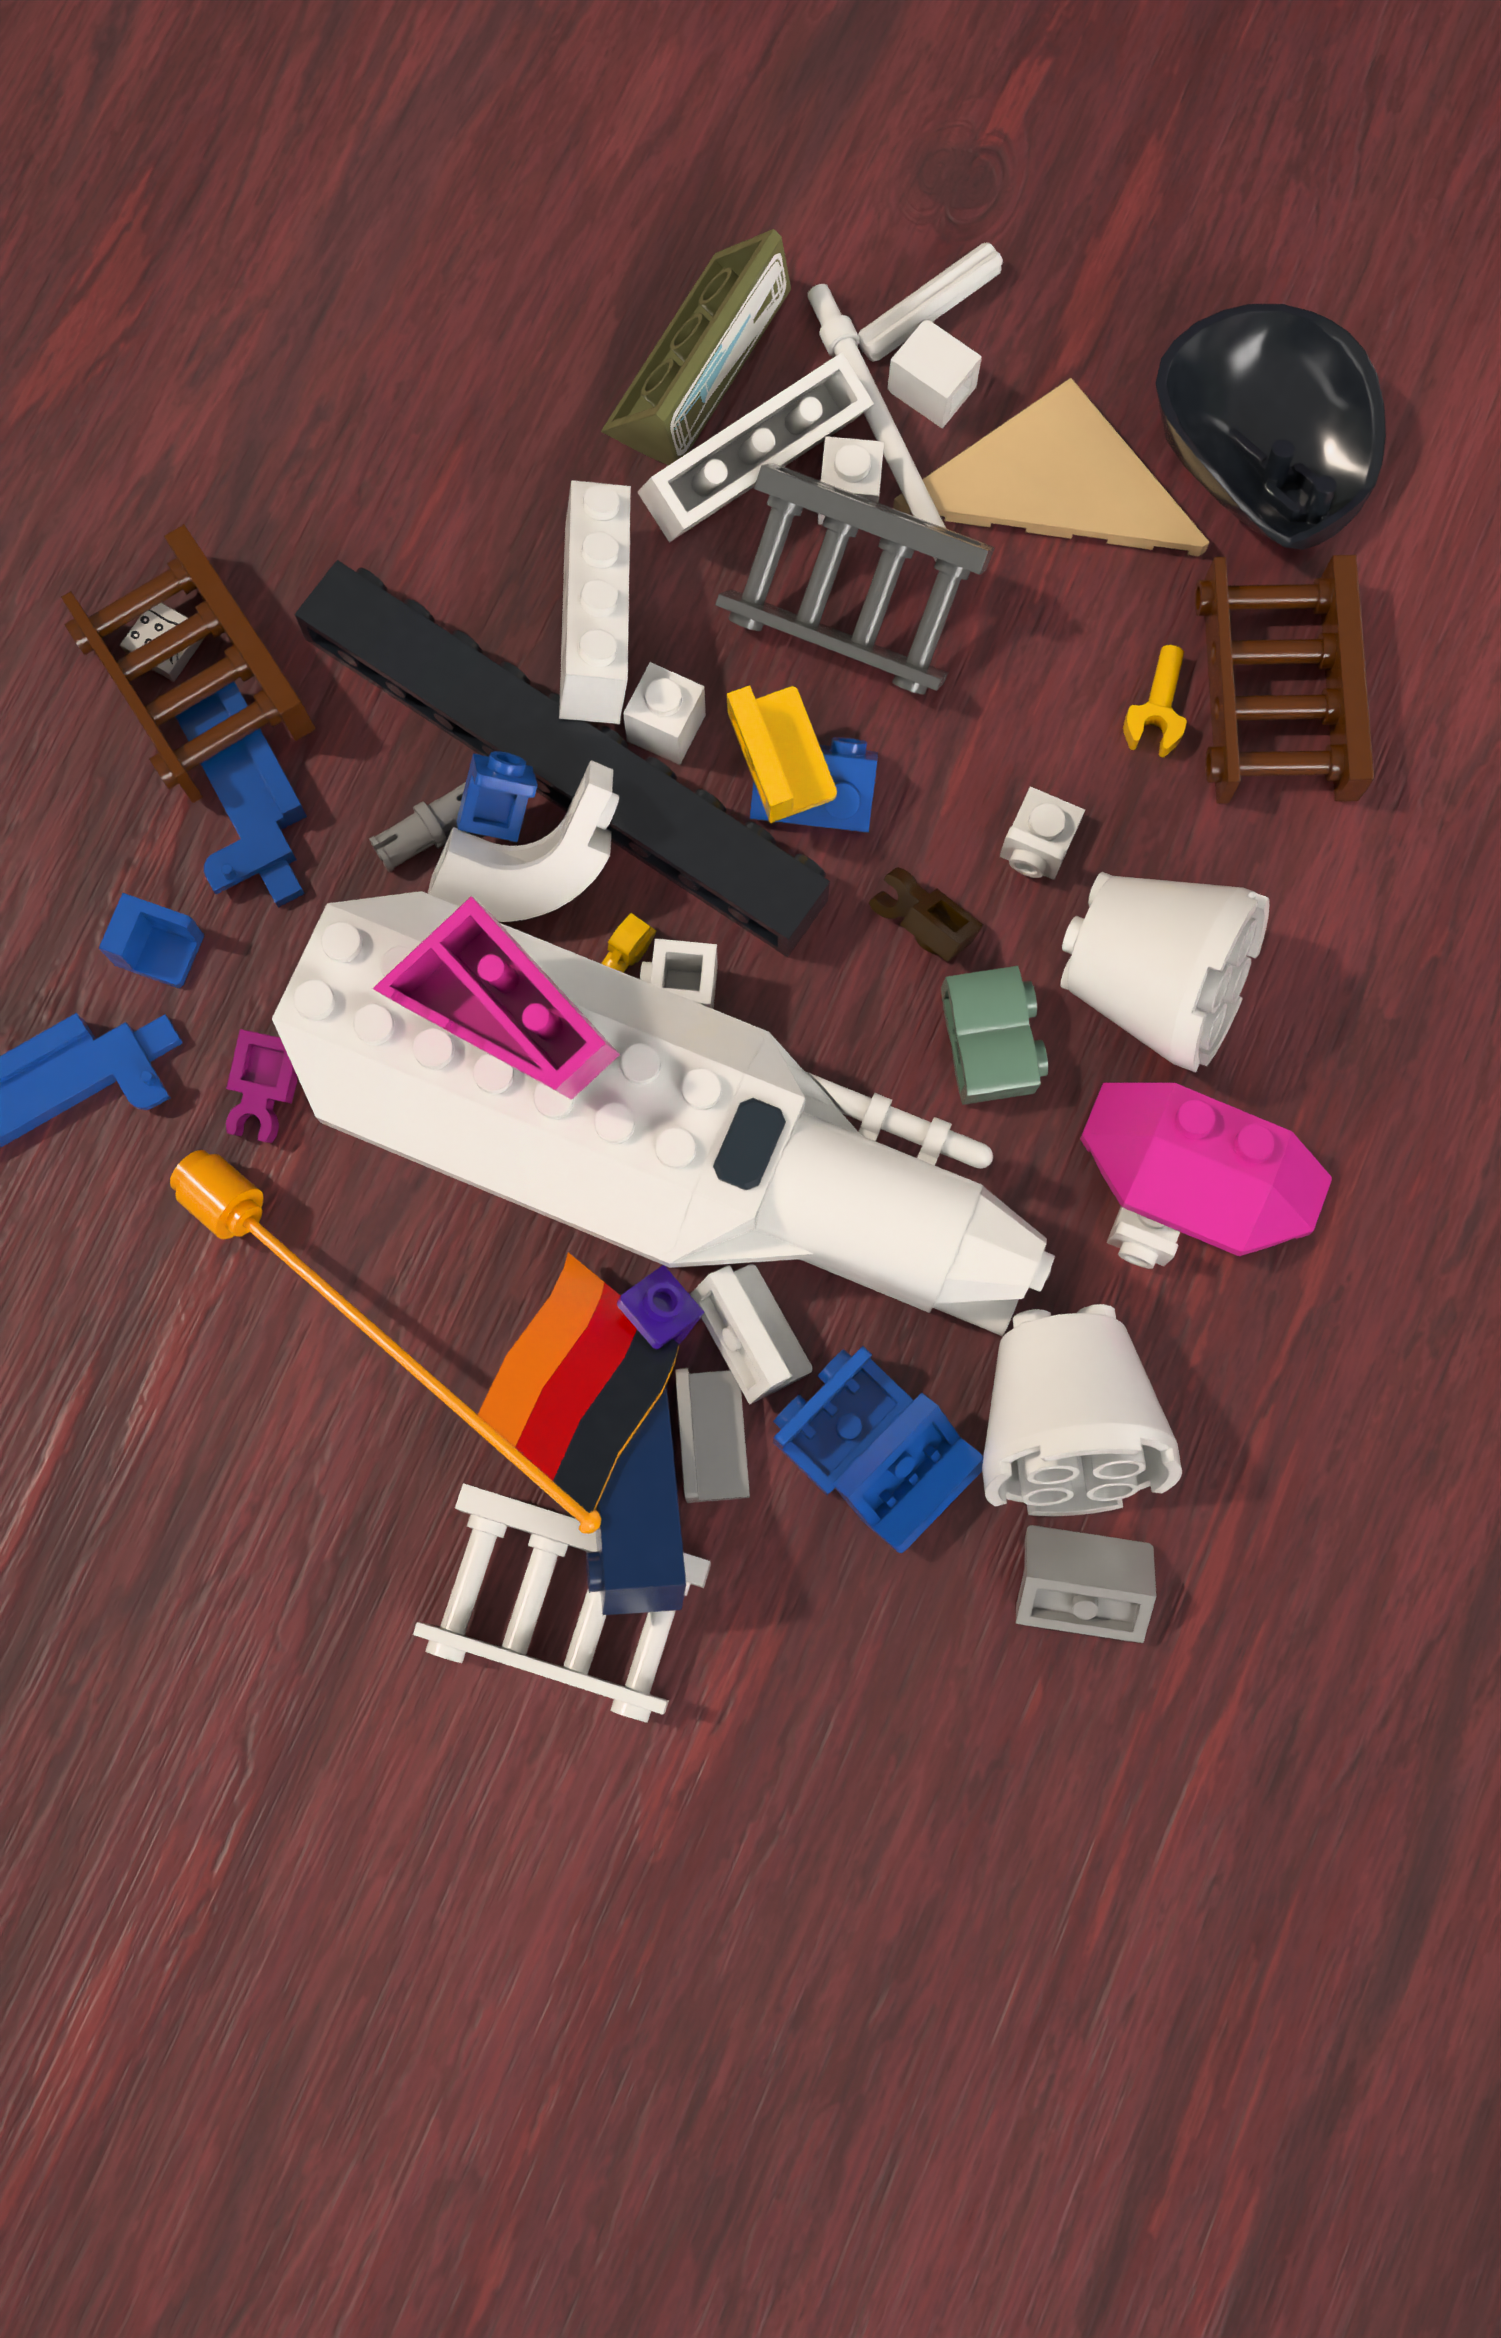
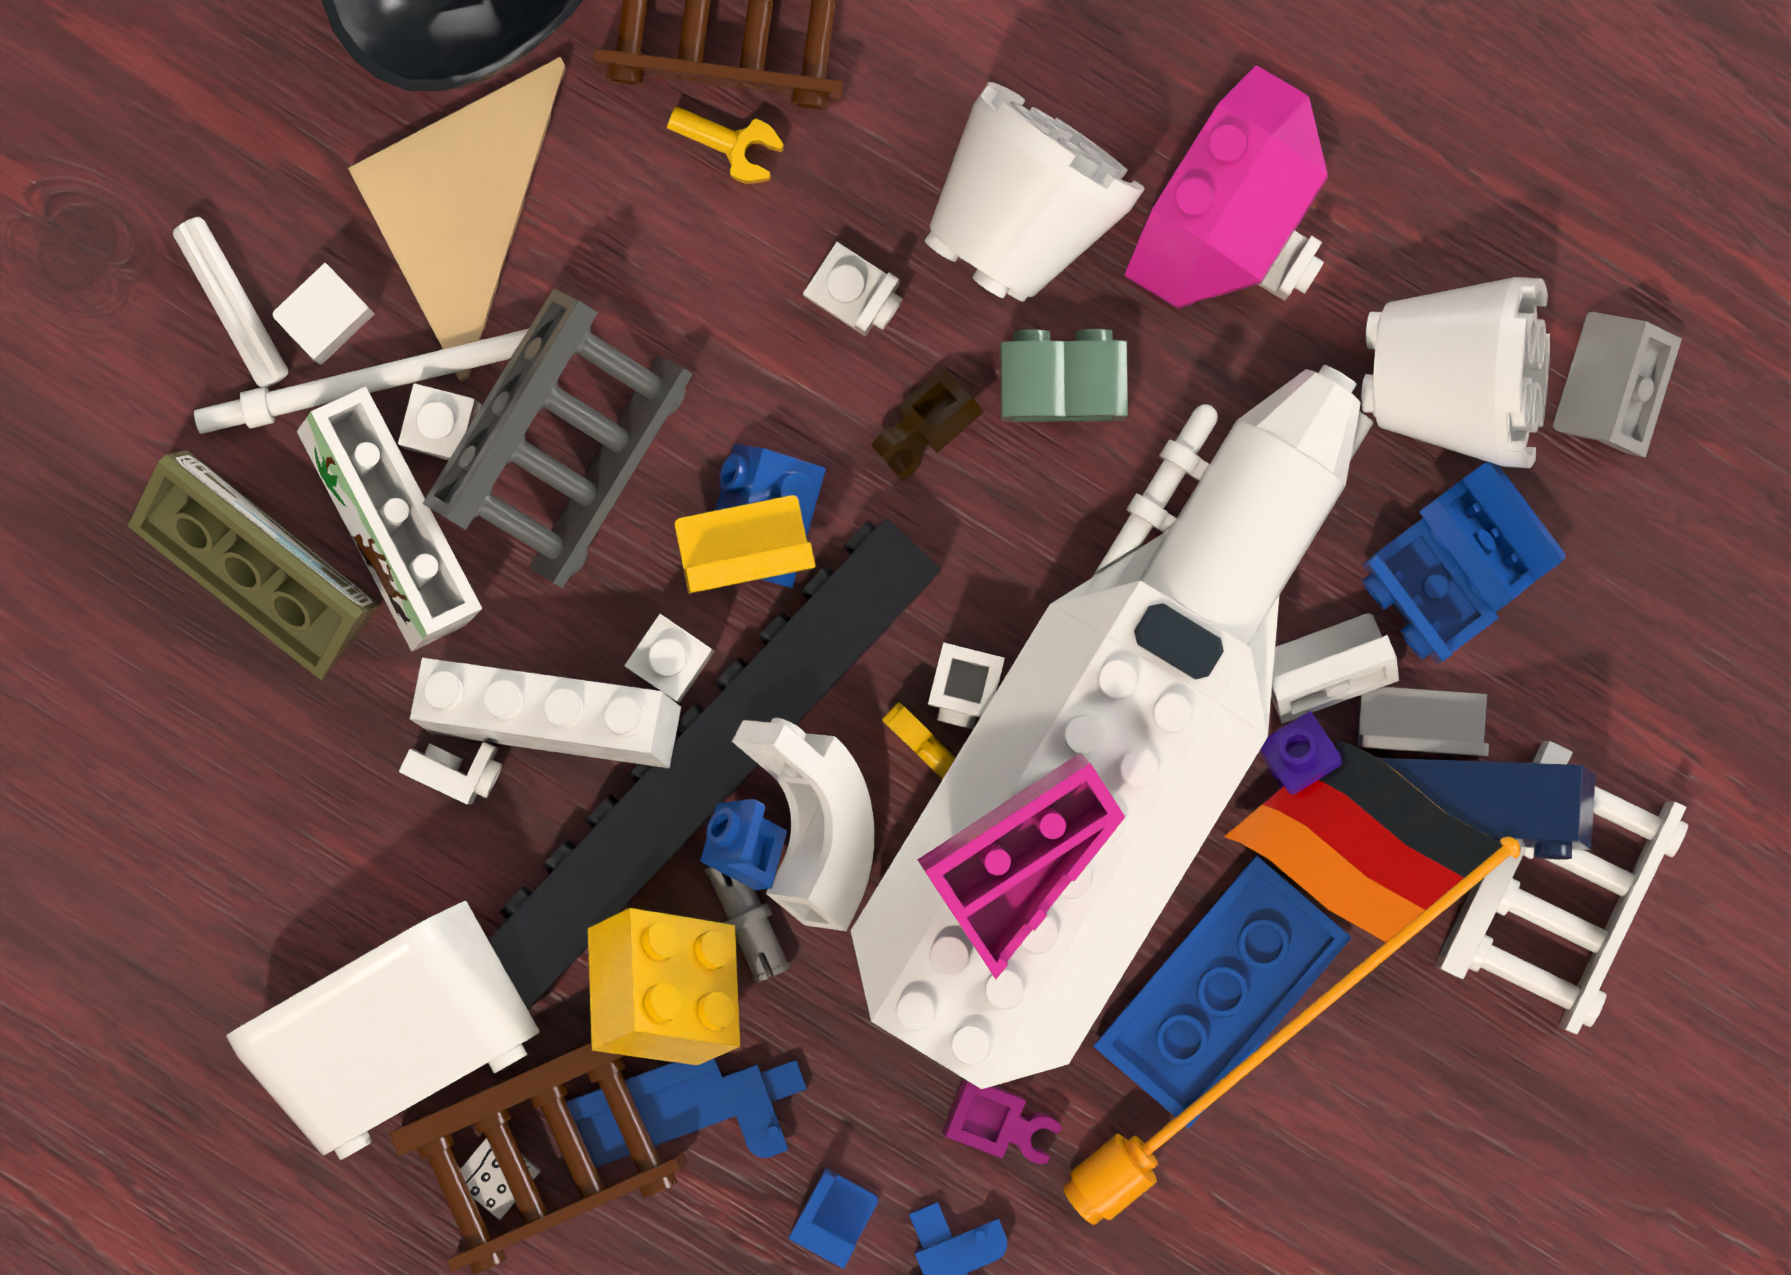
camera: 75 degrees left, 10 degrees up
(282, 501) = (387, 1031): none -> white windscreen
(348, 737) = (663, 987): none -> yellow brick
(417, 1275) = (1222, 988): none -> blue plate
(528, 541) = (441, 771): none -> white bracket

